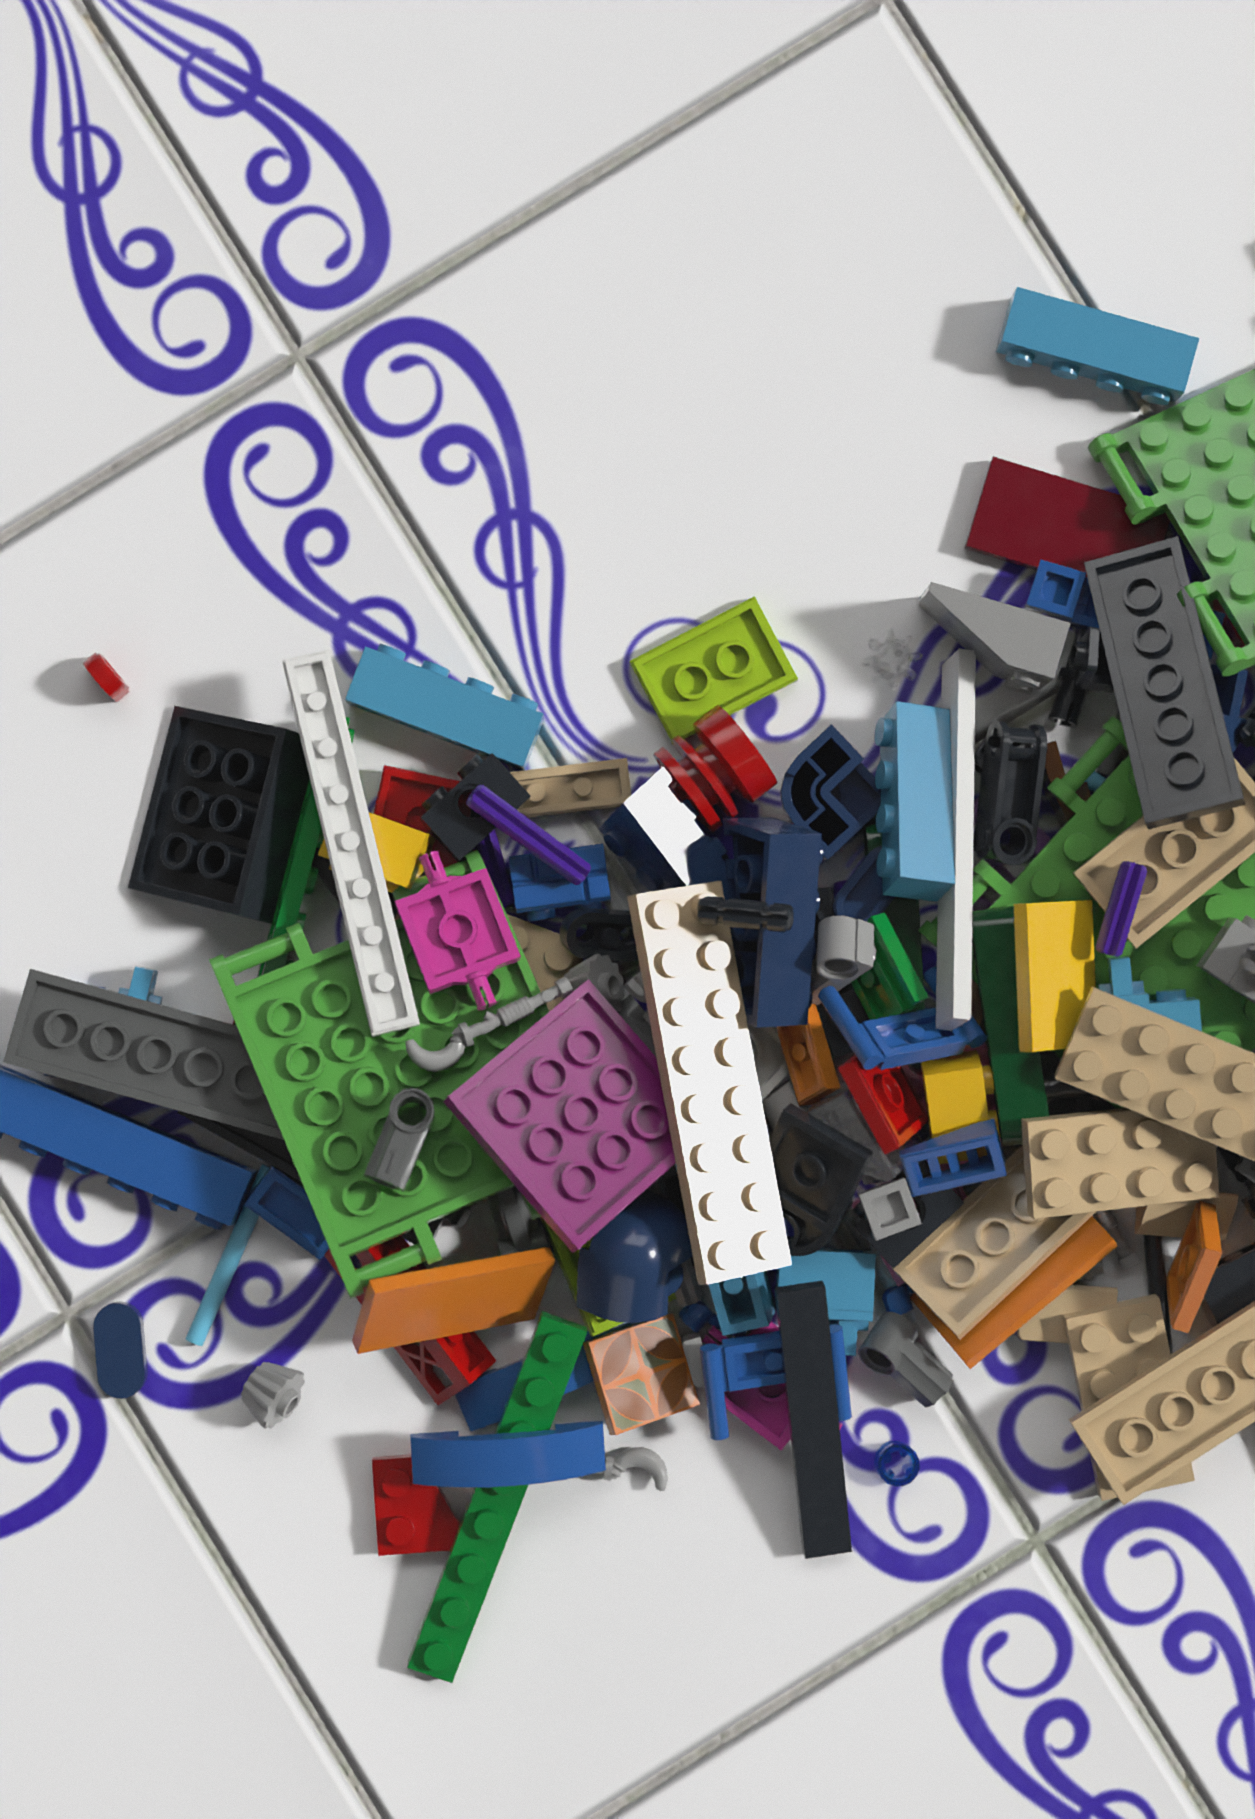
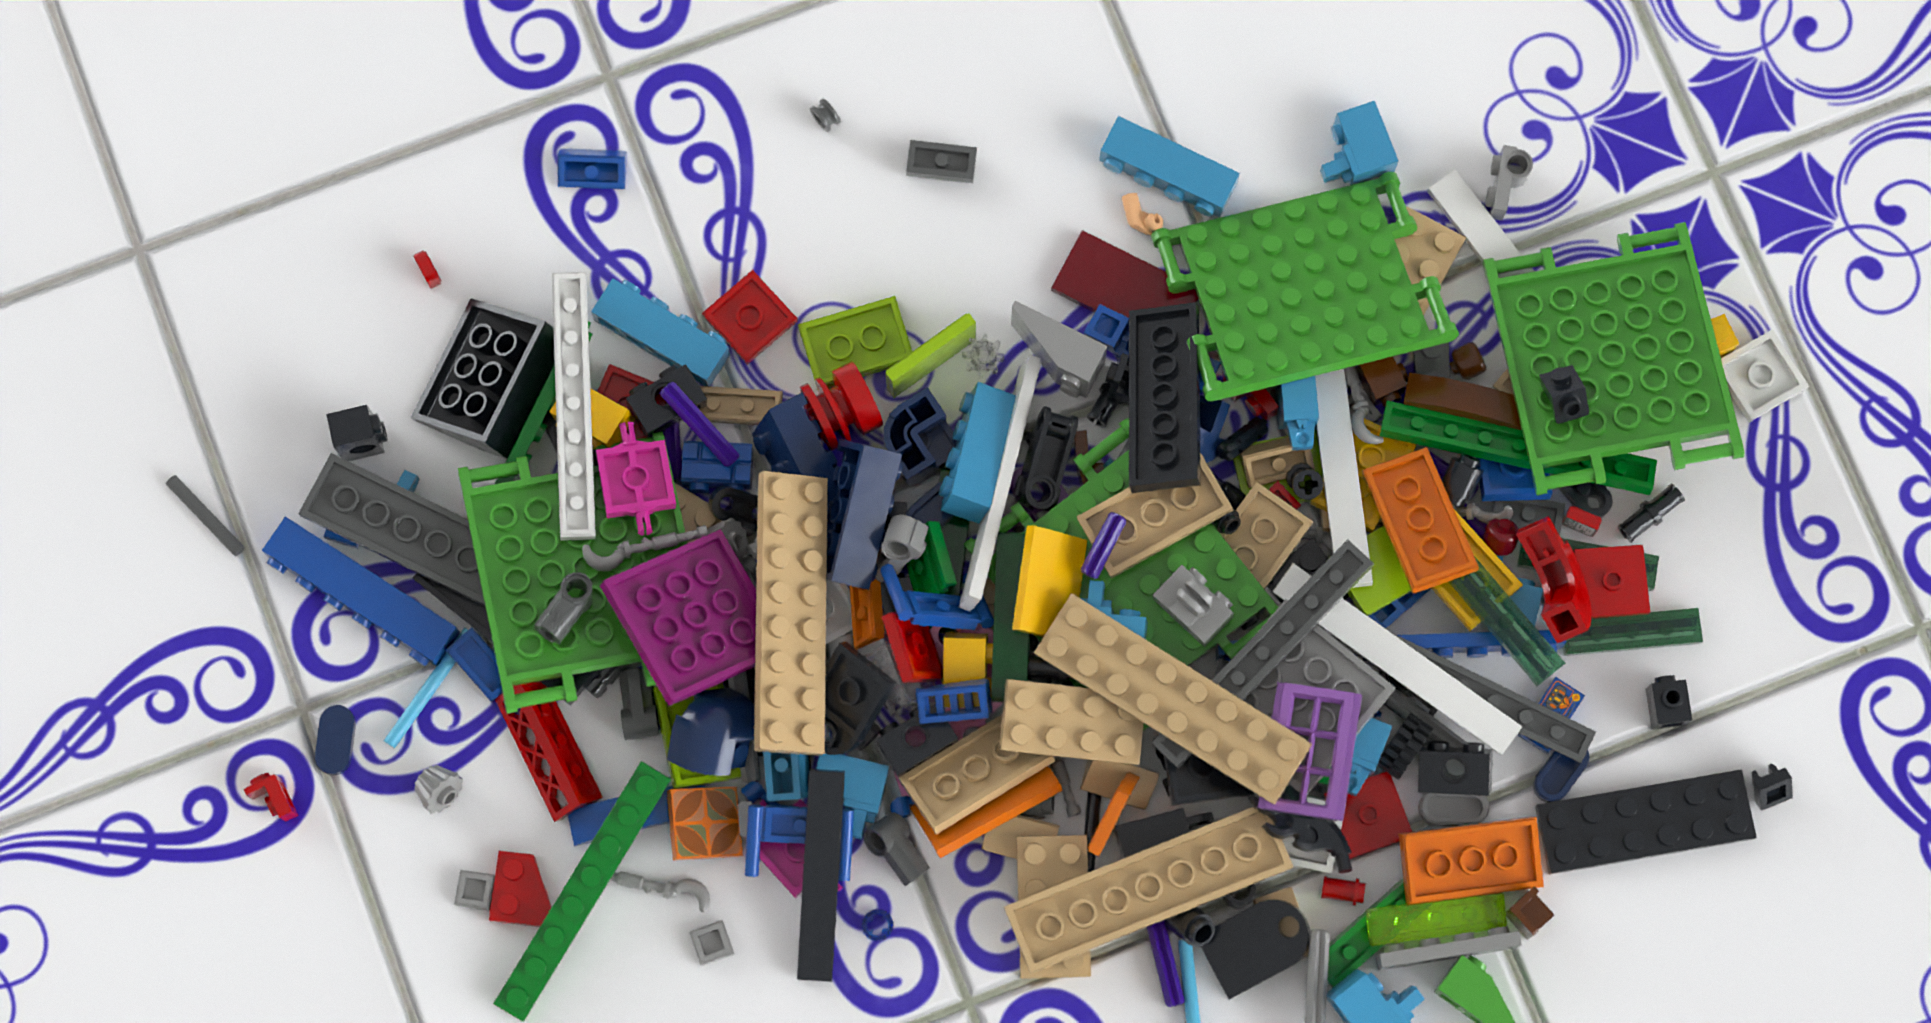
camera: 15 degrees right, 10 degrees down
(58, 929) = (357, 433): none -> black brick
(61, 1445) = (278, 801): none -> red bracket
(303, 491) = (592, 168): none -> blue slope
(350, 1516) = (474, 890): none -> light grey tile
(452, 1299) = (579, 736): orange tile -> none
(508, 1458) = (597, 858): blue slope -> none
(562, 662) = (749, 317): none -> red plate
(609, 358) = (825, 115): none -> dark grey bush
(681, 1528) = (711, 943): none -> light grey tile
(745, 914) = (837, 497): black axle -> none
(782, 394) = (941, 161): none -> dark grey plate
(823, 673) = (930, 355): none -> lime tile
(889, 1208) = (902, 728): light grey plate -> none
(1067, 426) = (1139, 219): none -> light nougat arm

